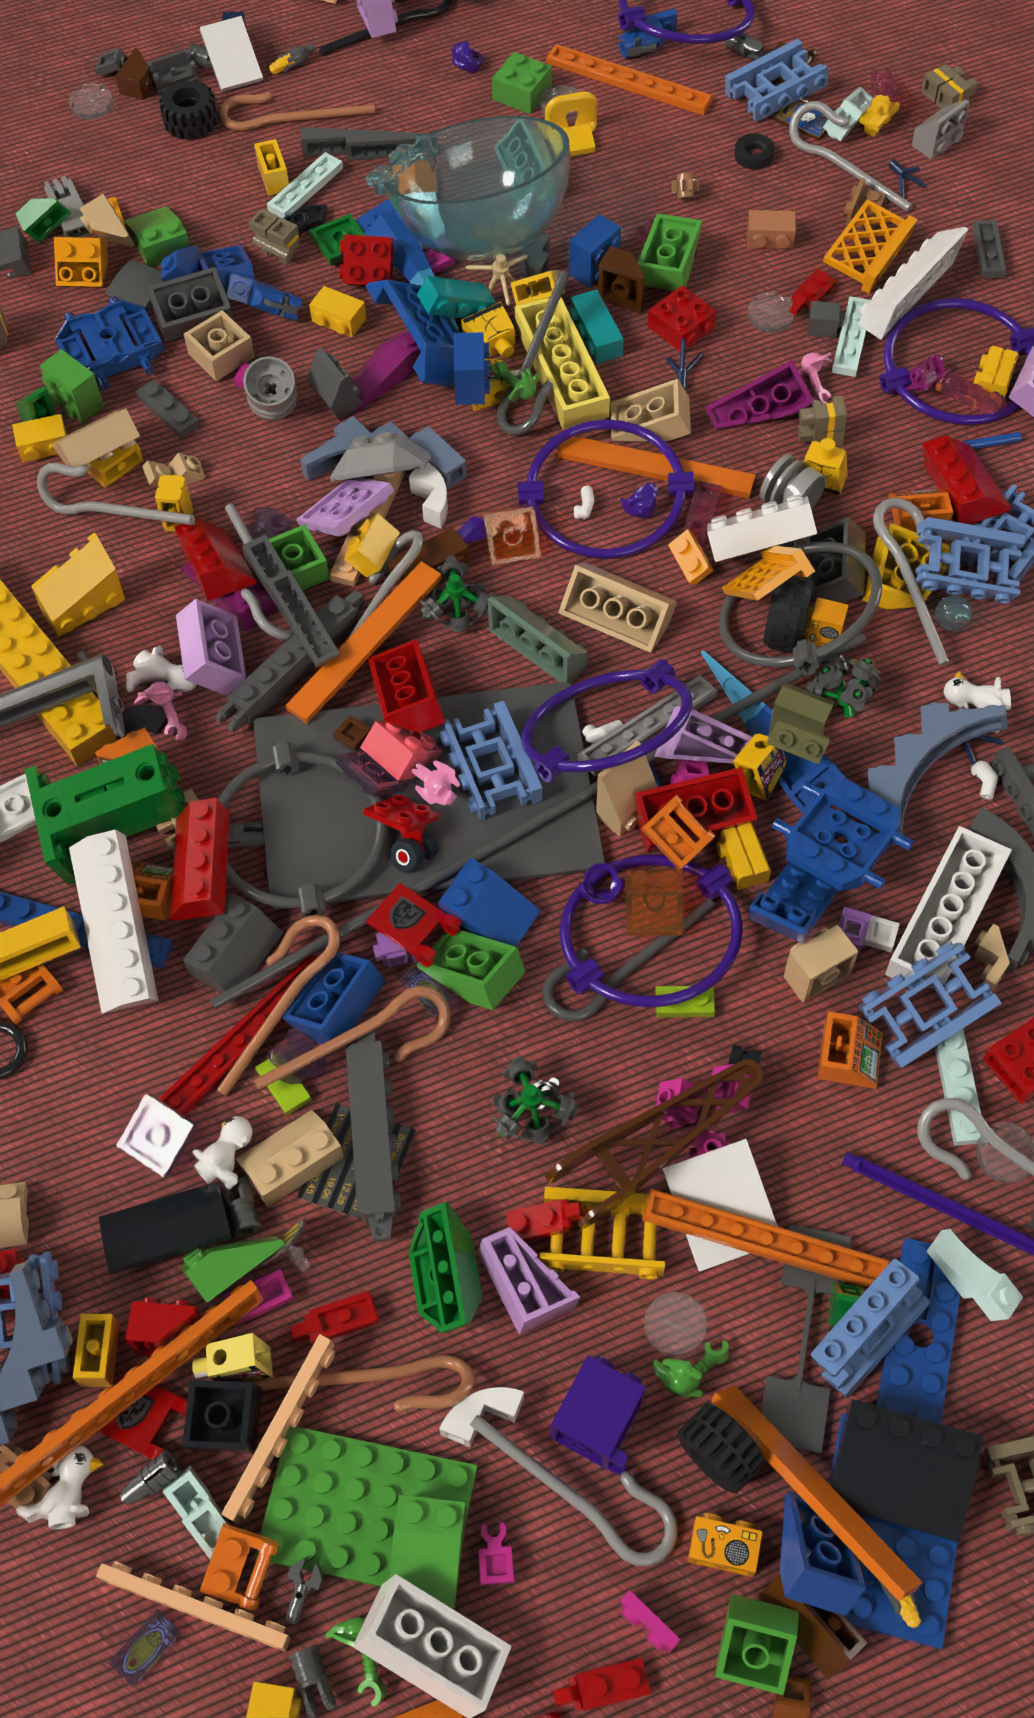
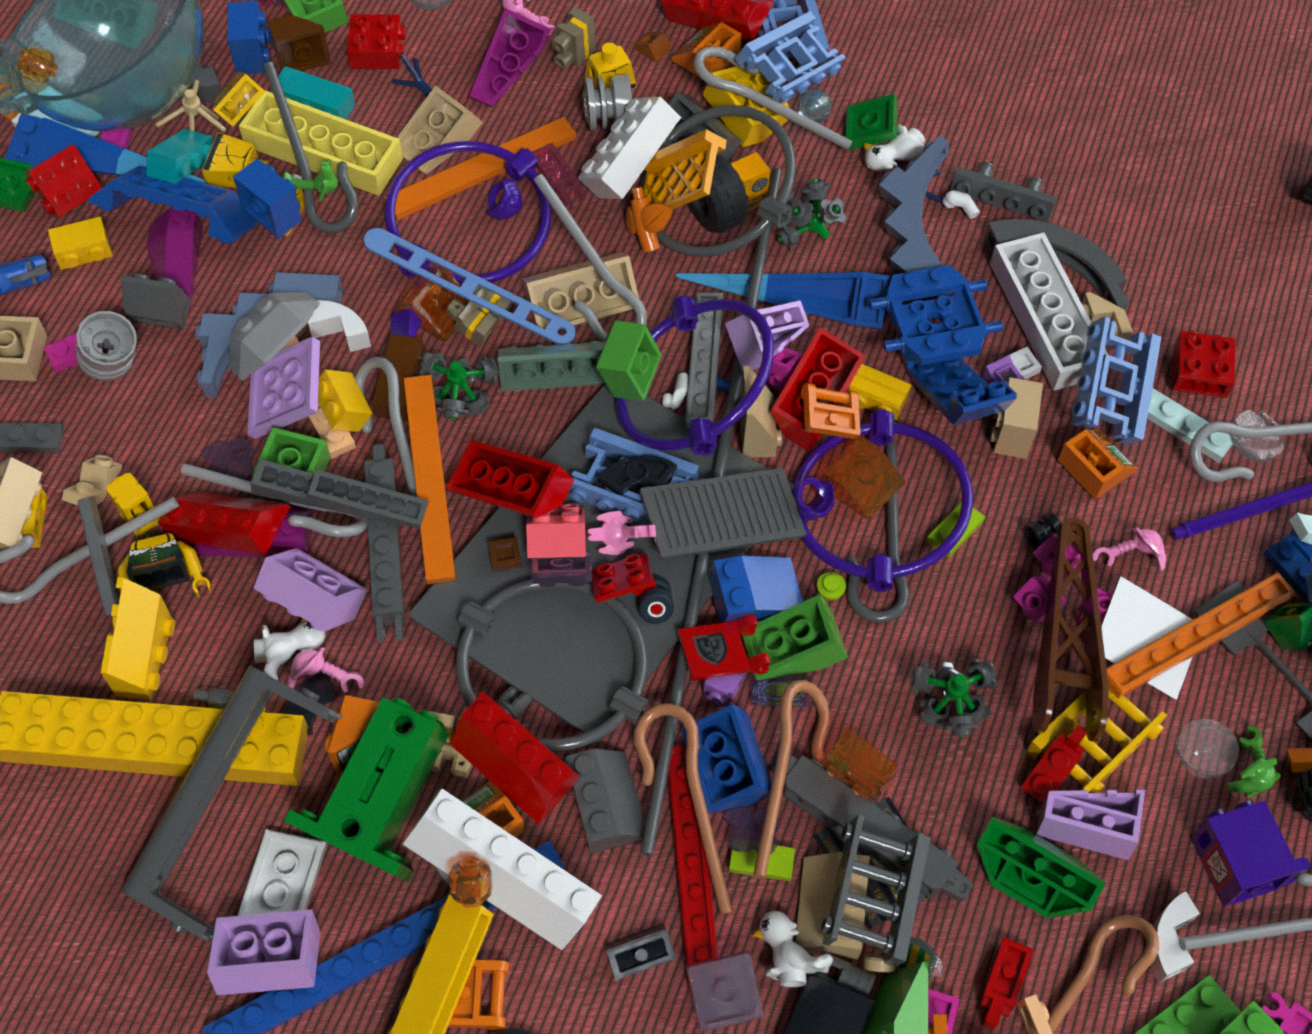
camera: 50 degrees left, 0 degrees up
(76, 907) = (470, 881): none -> clear orange head
(120, 507) = (99, 553): none -> dark grey tile
(143, 1061) = (639, 951): none -> black slope
(149, 555) = (162, 563): none -> torso
(271, 1221) = (875, 962): none -> tan tile
(309, 1197) = (907, 883): none -> dark grey fence
(405, 1085) = (861, 766): none -> clear orange slope
(422, 165) = (37, 64): none -> clear orange head
(494, 754) = (637, 472): none -> black tile
(507, 455) = (381, 241): none -> medium blue piece
(522, 835) = (722, 513): none -> dark grey window
(530, 561) = (475, 321): none -> dark tan hips
(546, 955) = (831, 586): none -> lime plate
(573, 673) = (629, 360): none -> bright green brick
(587, 503) = (469, 242): white arm -> none
(636, 606) = (596, 261): none -> light grey piece
(690, 557) = (592, 213): light orange plate -> none
(717, 592) = (646, 219): none -> orange plant
(761, 766) = (819, 310): yellow torso -> none
(799, 722) = (801, 262): olive panel -> none
(809, 1137) = (1144, 540): none -> bright pink piece
(888, 475) = (653, 45): none -> dark orange slope
(984, 659) = (872, 121): none -> green plate

